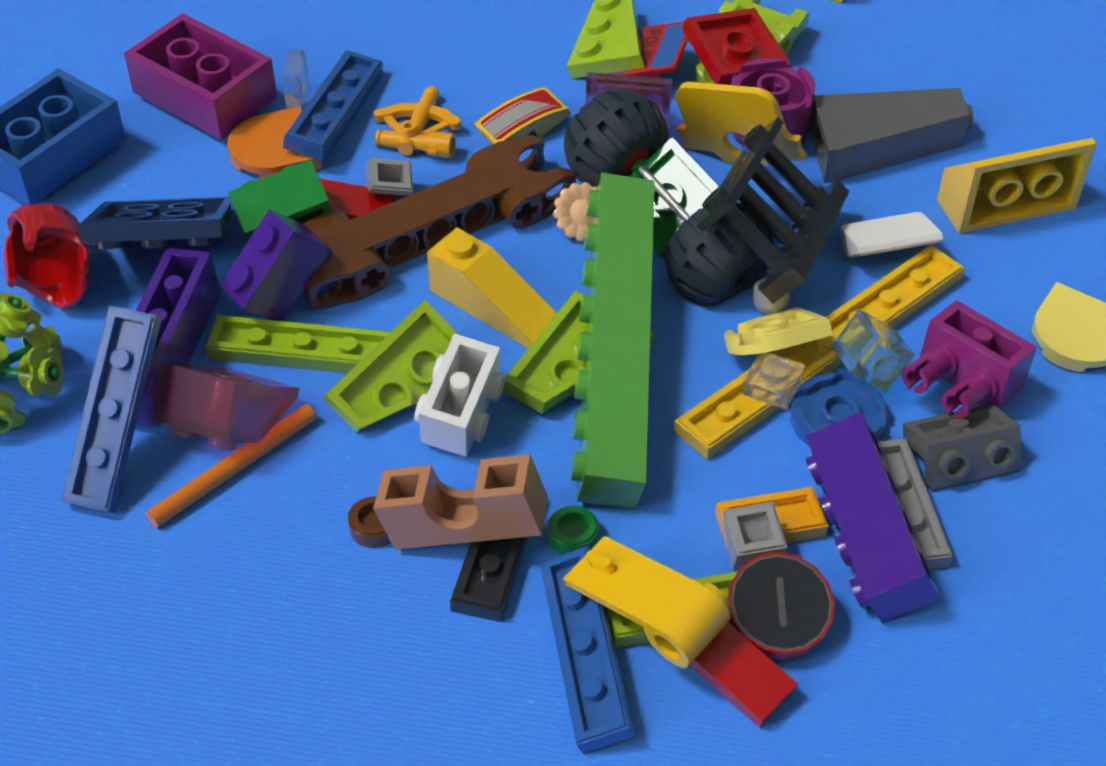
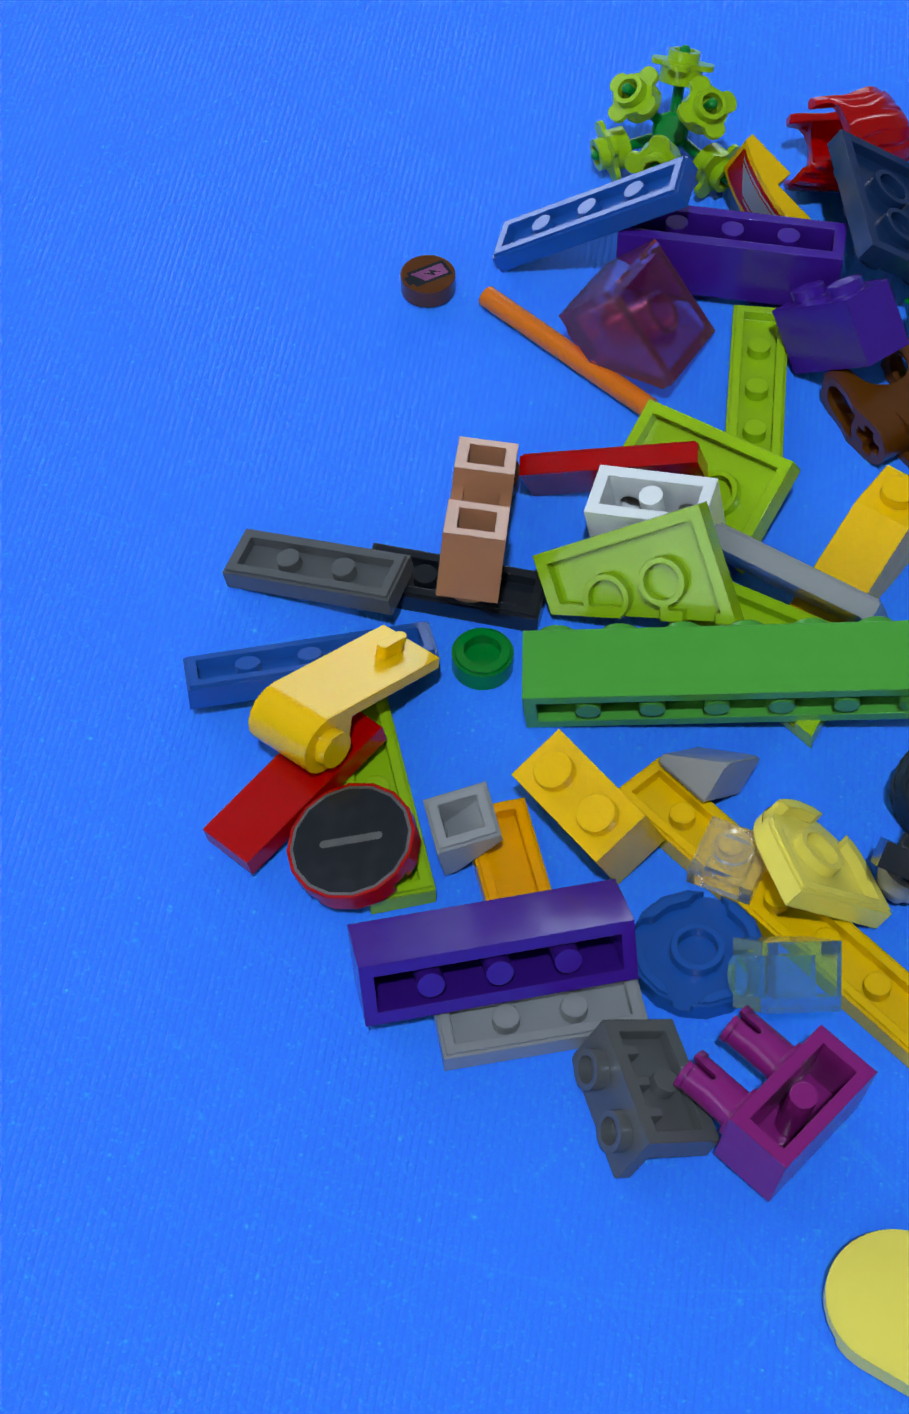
camera: 90 degrees right, 5 degrees up
(85, 303) = (756, 181): none -> slope
(123, 562) = (428, 281): none -> reddish brown tile
(404, 410) = (576, 469): none -> red tile
(483, 640) = (319, 571): none -> dark grey tile
(522, 391) = (647, 569): none -> lime wing
(535, 307) = (797, 577): none -> light grey tile
(690, 387) = (710, 772): none -> light grey slope
(738, 452) = (588, 806): none -> yellow brick

